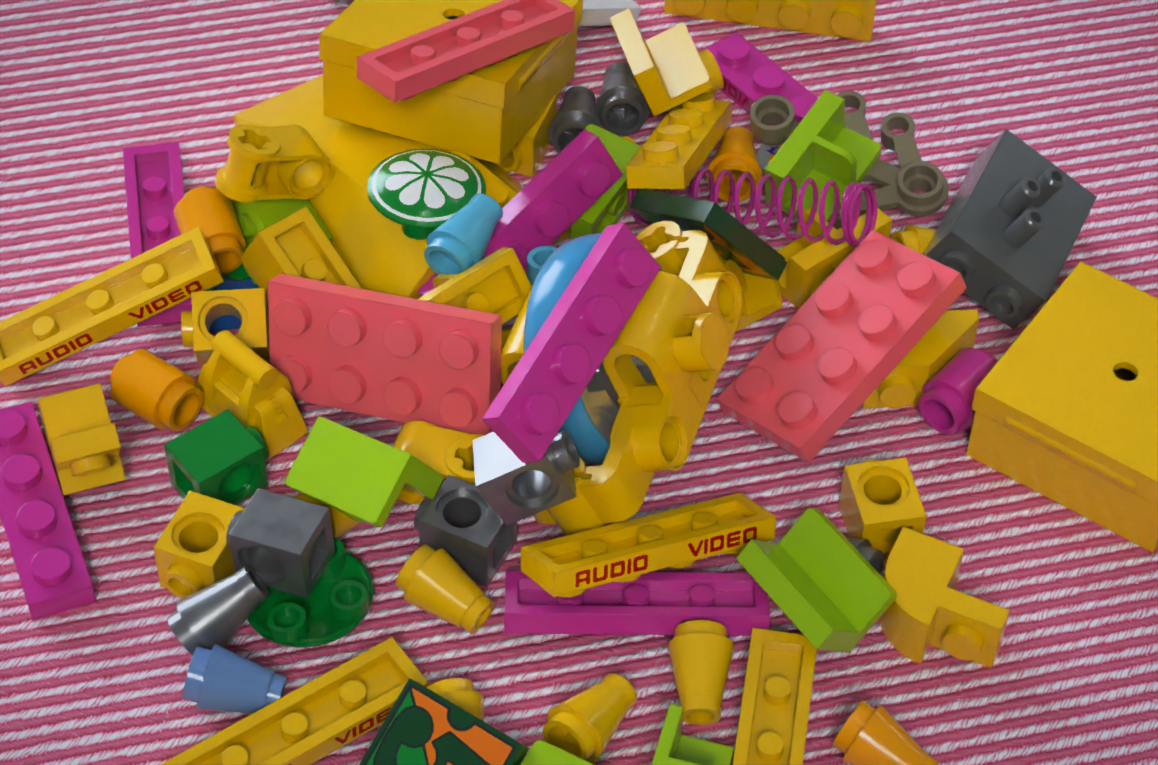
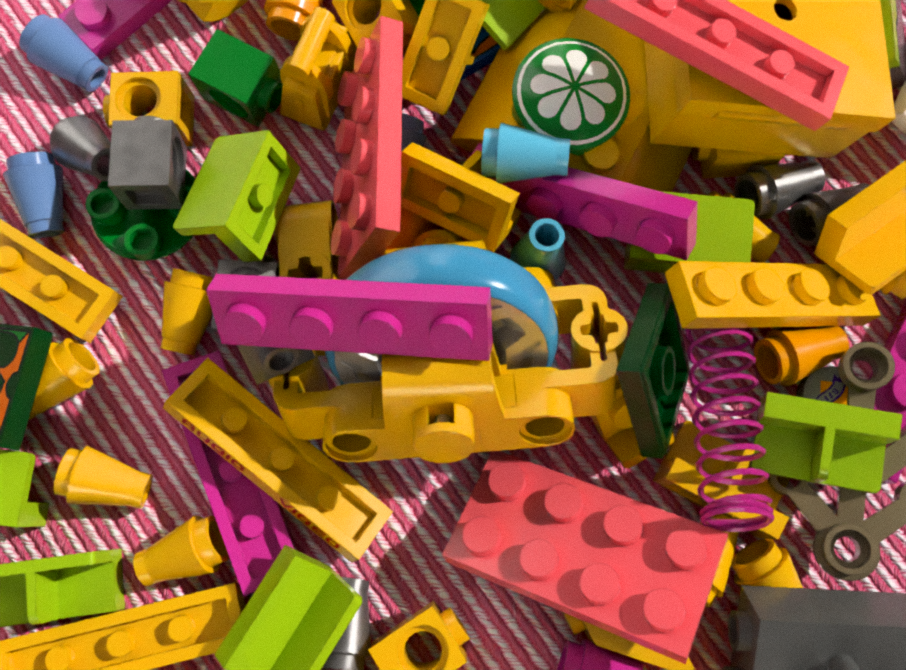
camera: 70 degrees right, 30 degrees up
(79, 611) = (61, 52): none -> medium blue cone

